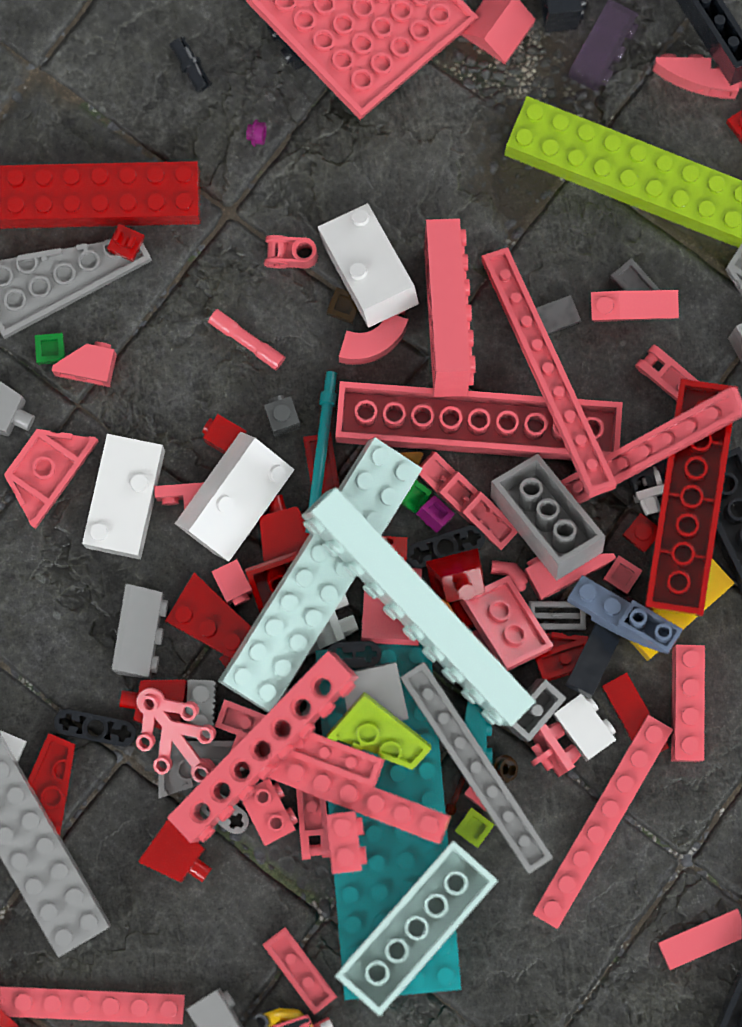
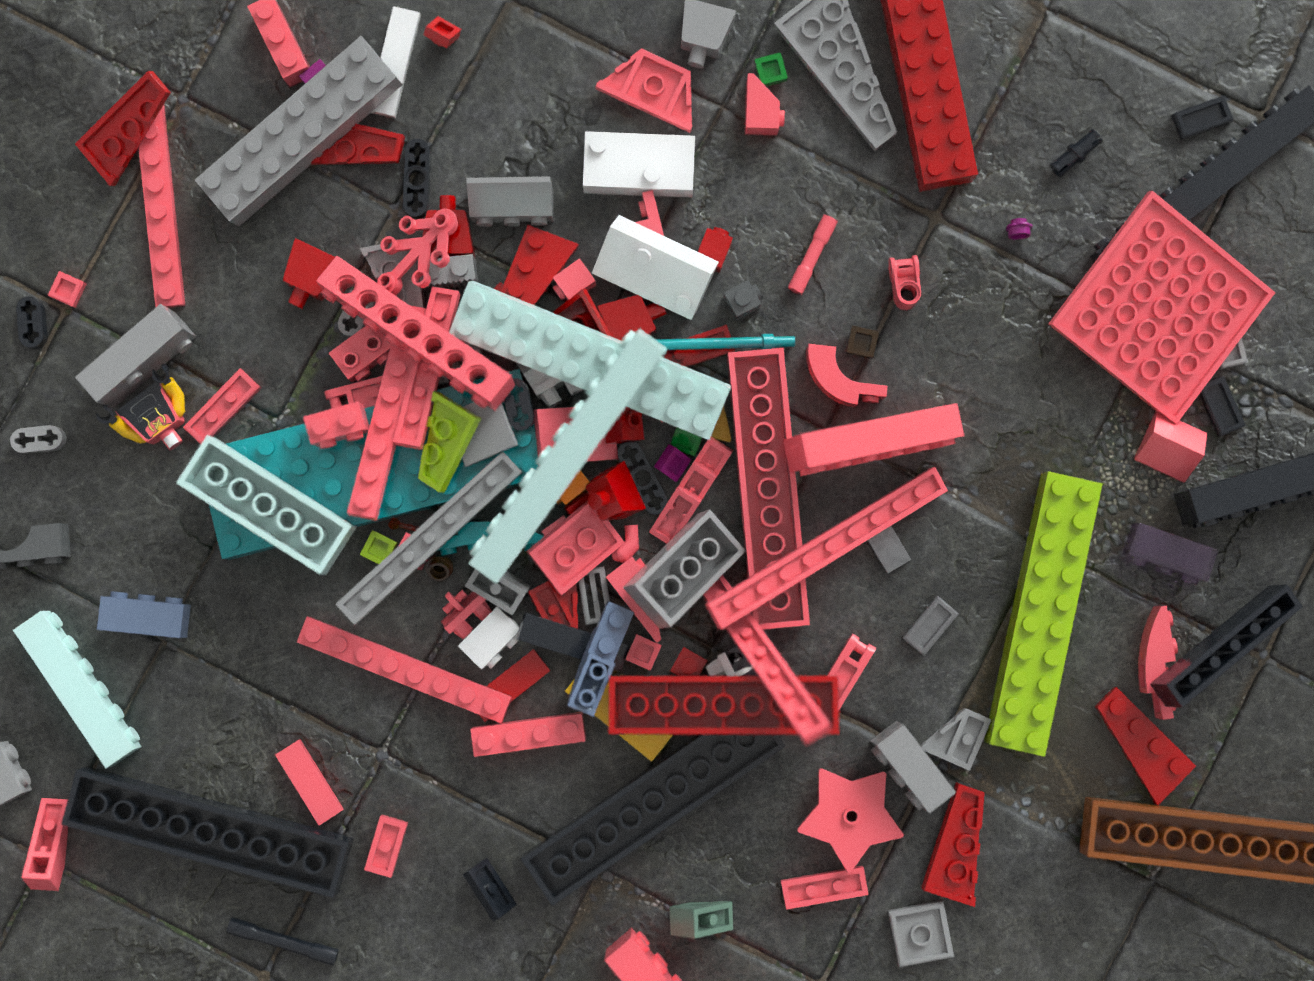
camera: 80 degrees right, 5 degrees up
(125, 242) = (886, 121): red tile -> none
(368, 265) = (903, 356): white brick -> none
(634, 305) = (910, 623): coral slope -> none

